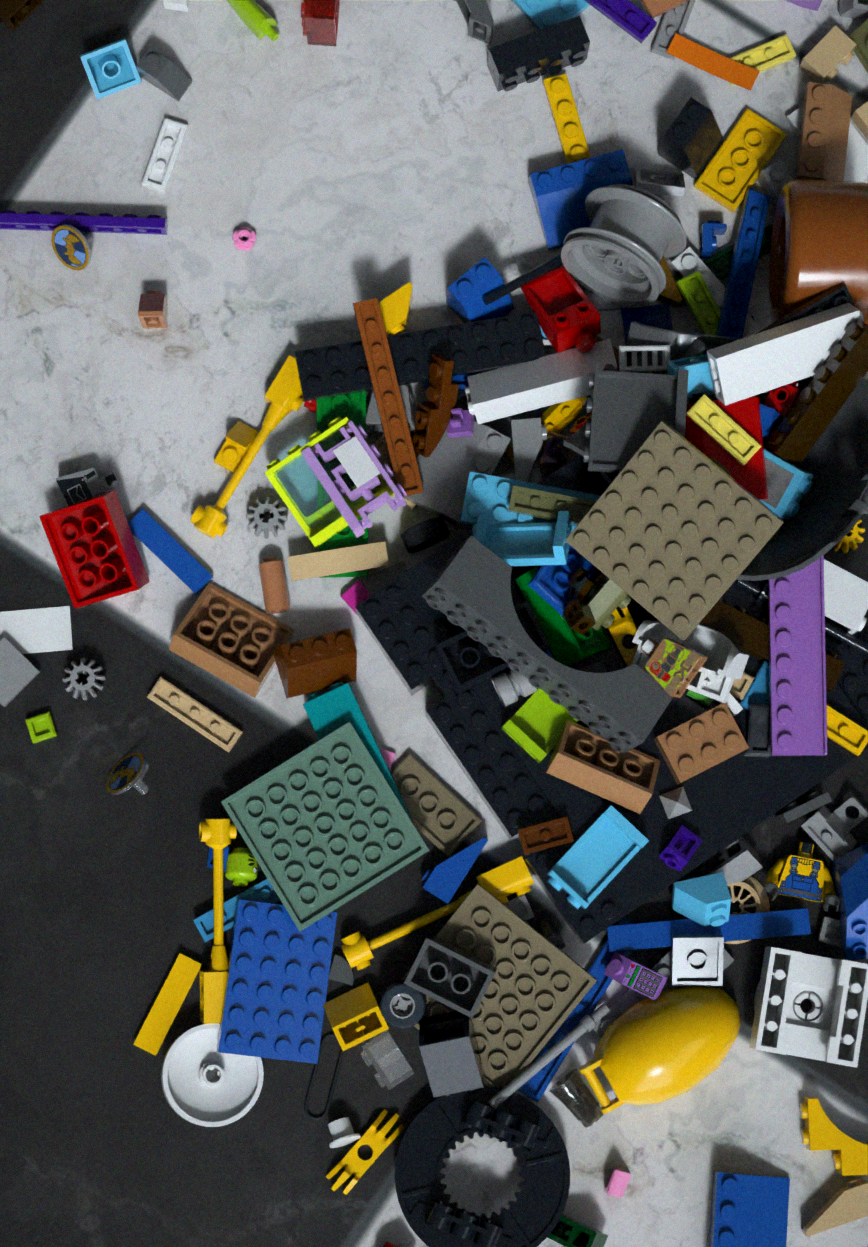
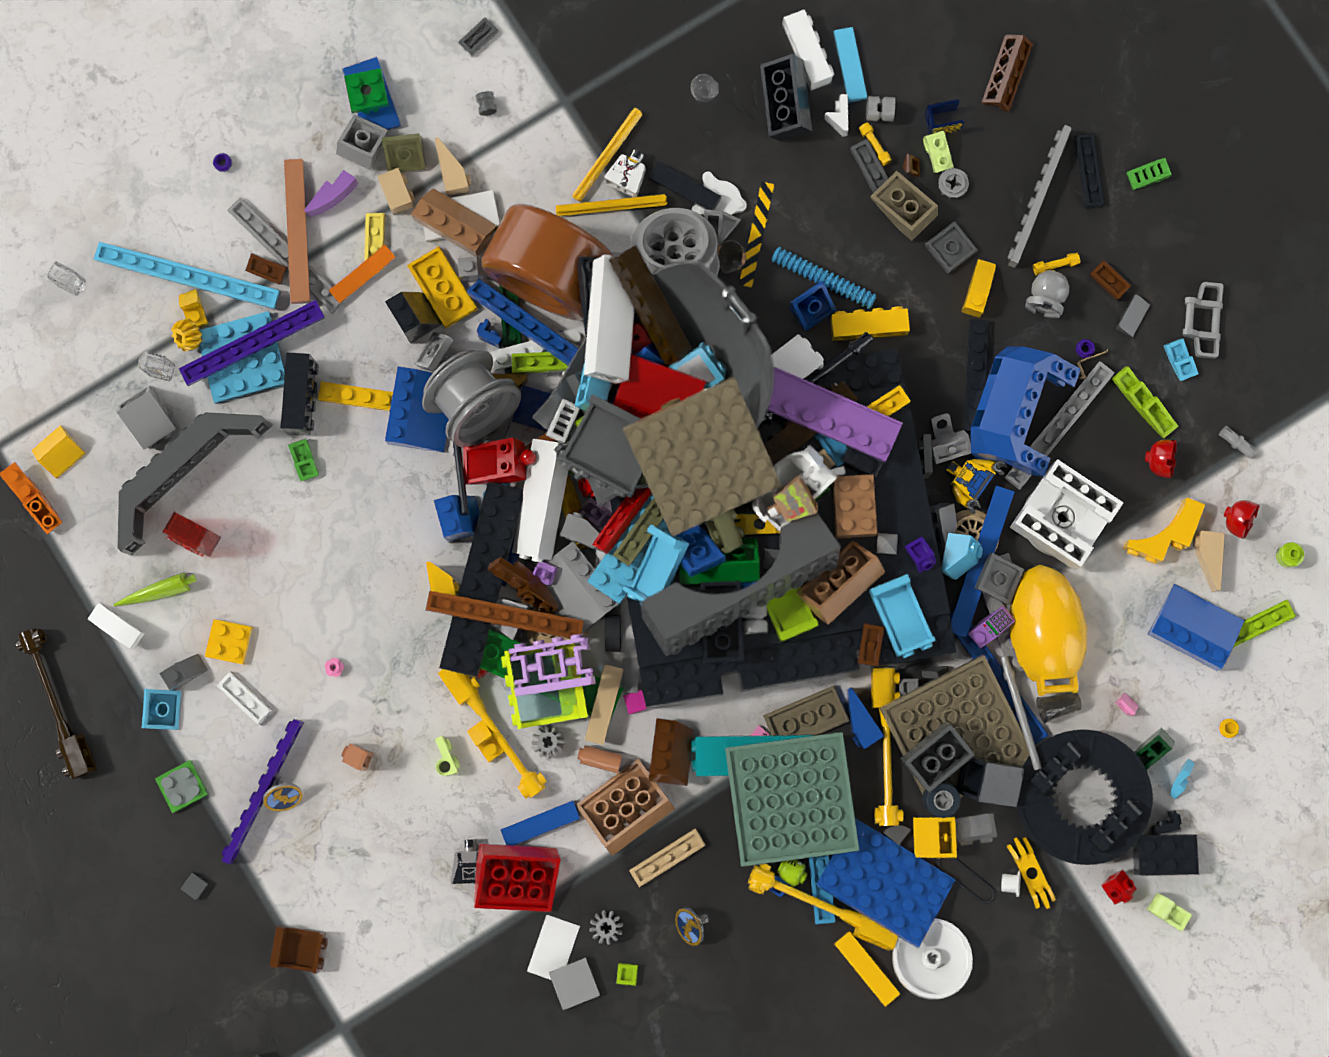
camera: 60 degrees left, 0 degrees up
(35, 132) = (181, 786): none -> light grey piece
(206, 404) = (445, 746): none -> yellowish green plate
(220, 108) = (228, 641): none -> yellow plate
(356, 462) = (541, 659): white sticker -> none
(466, 96) = (303, 459): none -> bright green slope
(559, 478) = (621, 519): none -> red plate
(576, 612) = (726, 551): dark brown piece -> none
(723, 430) = (644, 389): light yellow tile -> none

